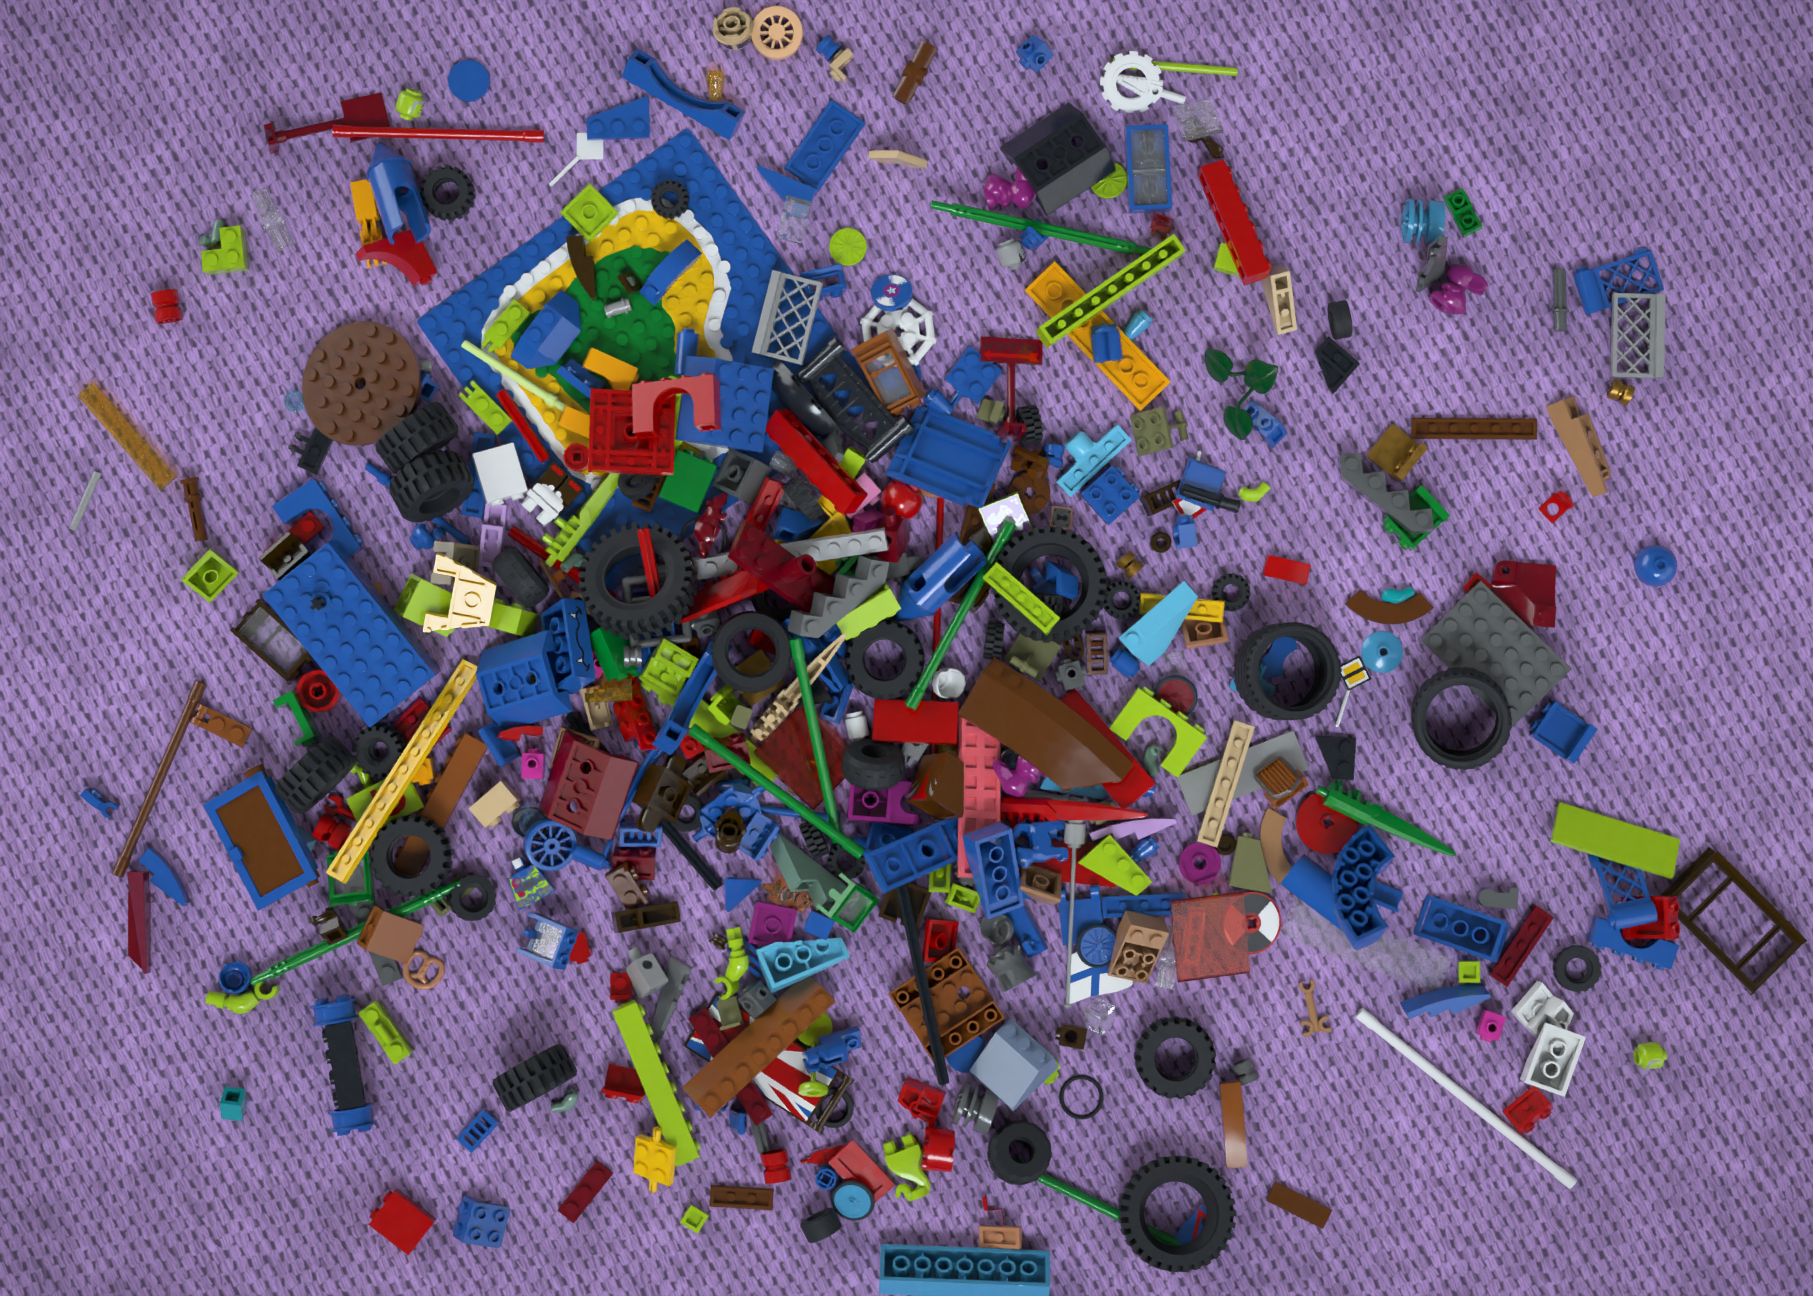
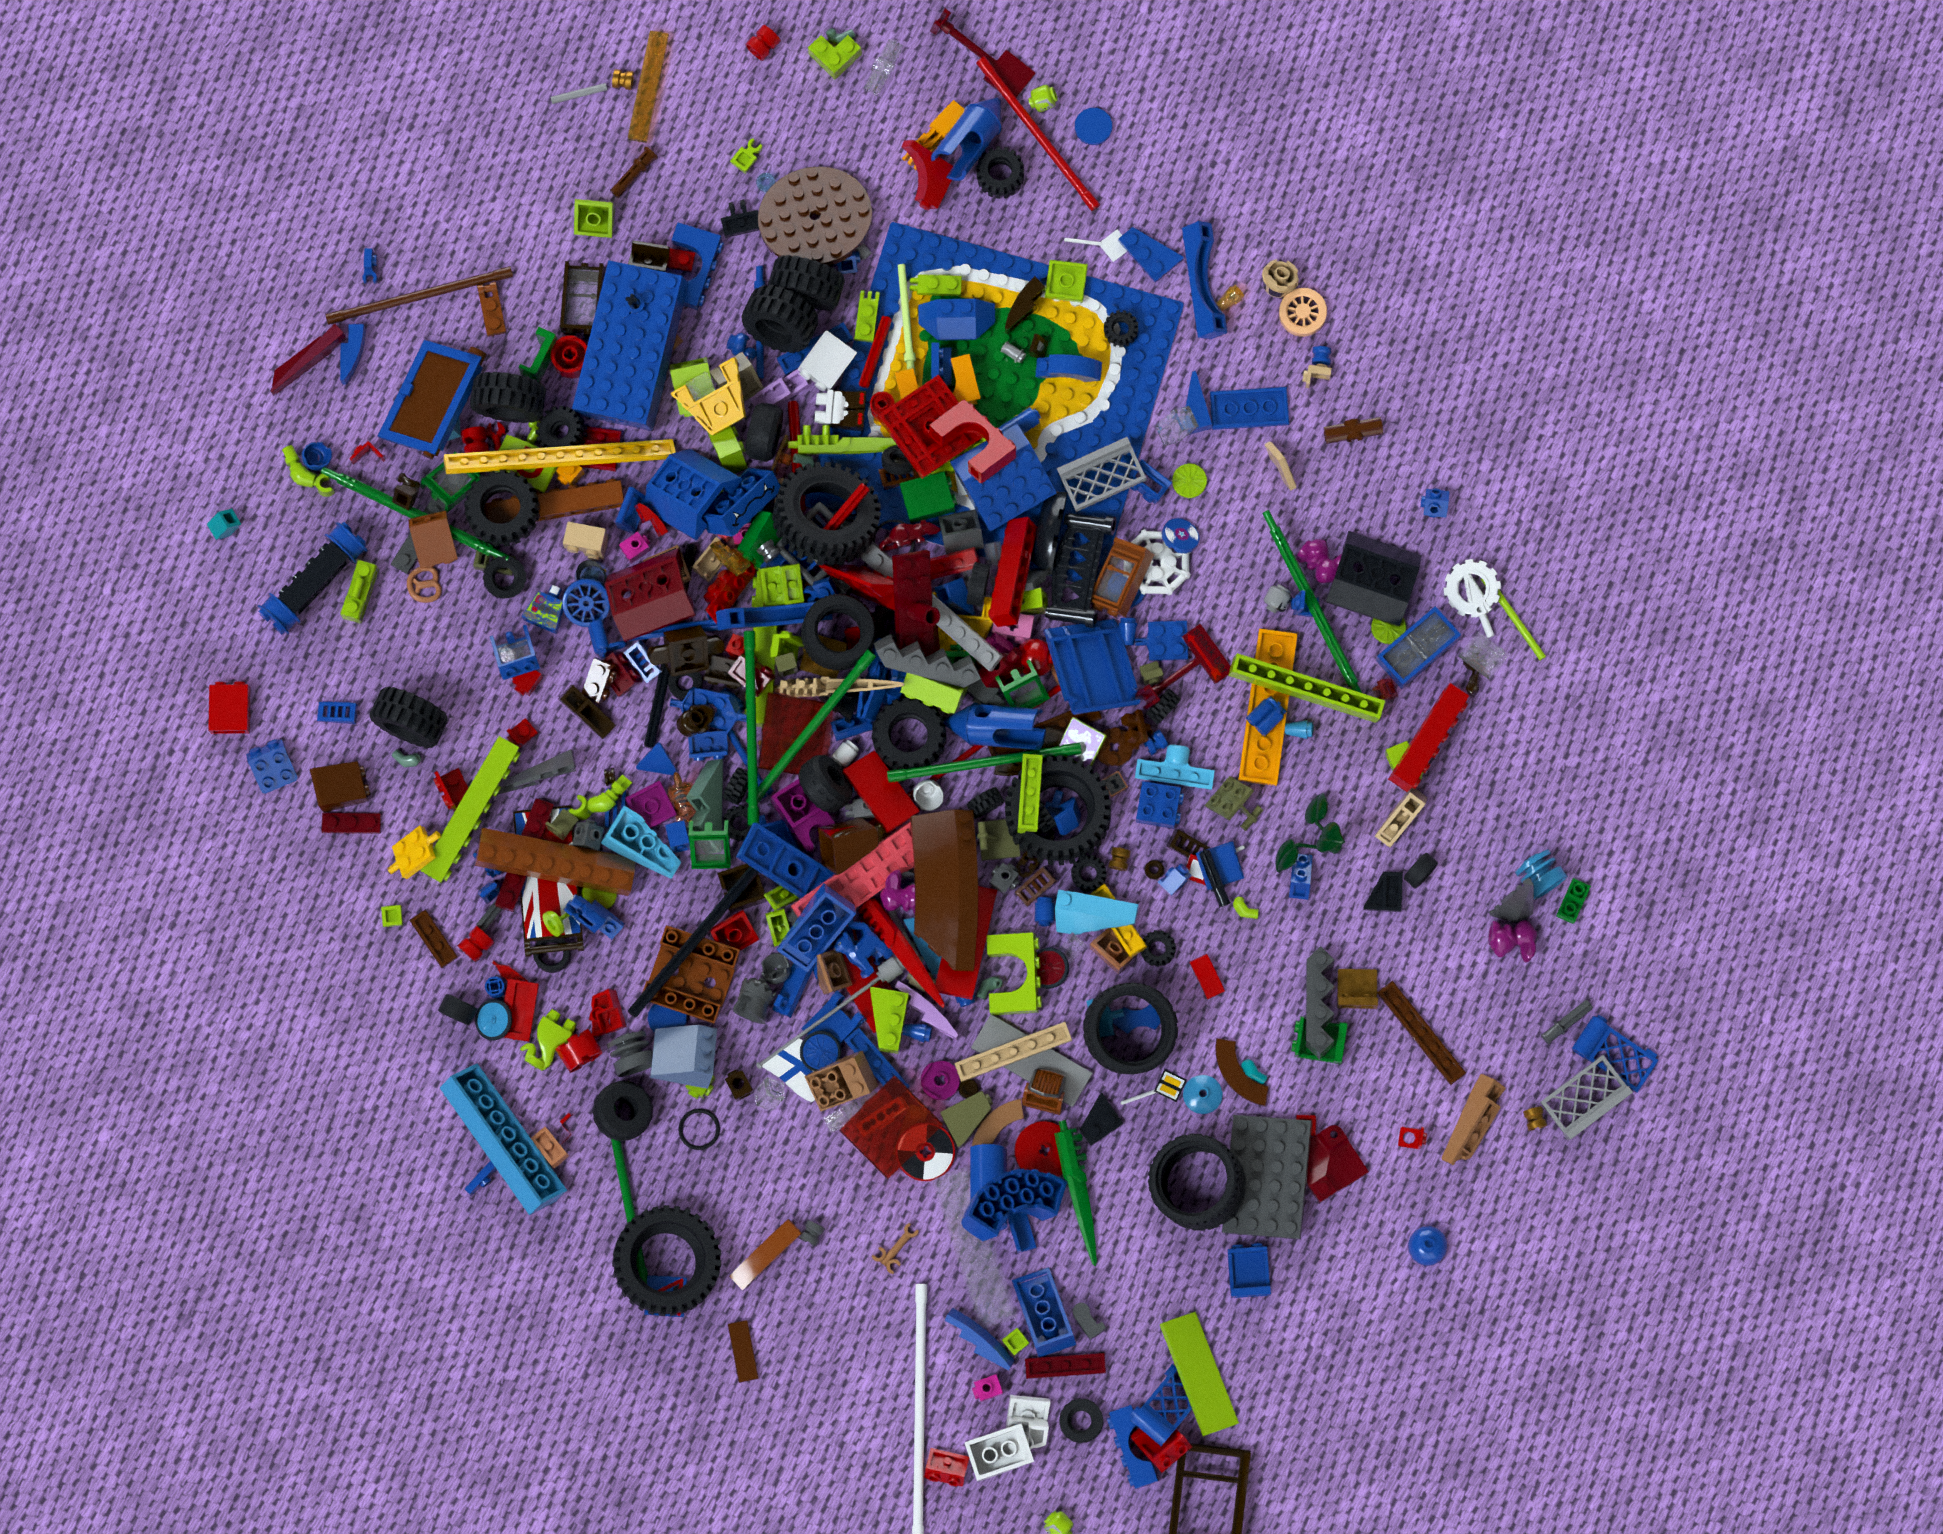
camera: 60 degrees right, 10 degrees down
(104, 452) = (622, 79): none -> pearl gold wheel
(259, 402) = (745, 157): none -> lime plate
(260, 933) = (361, 450): none -> red bracket
(437, 601) = (700, 386): none -> clear panel
(546, 1178) = (340, 786): none -> reddish brown slope
(645, 973) = (544, 741): light grey torso -> none
(700, 634) = (821, 589): none -> blue plate
(926, 533) = (1025, 690): none -> green window
(1175, 1086) = (808, 1171): black tyre -> none

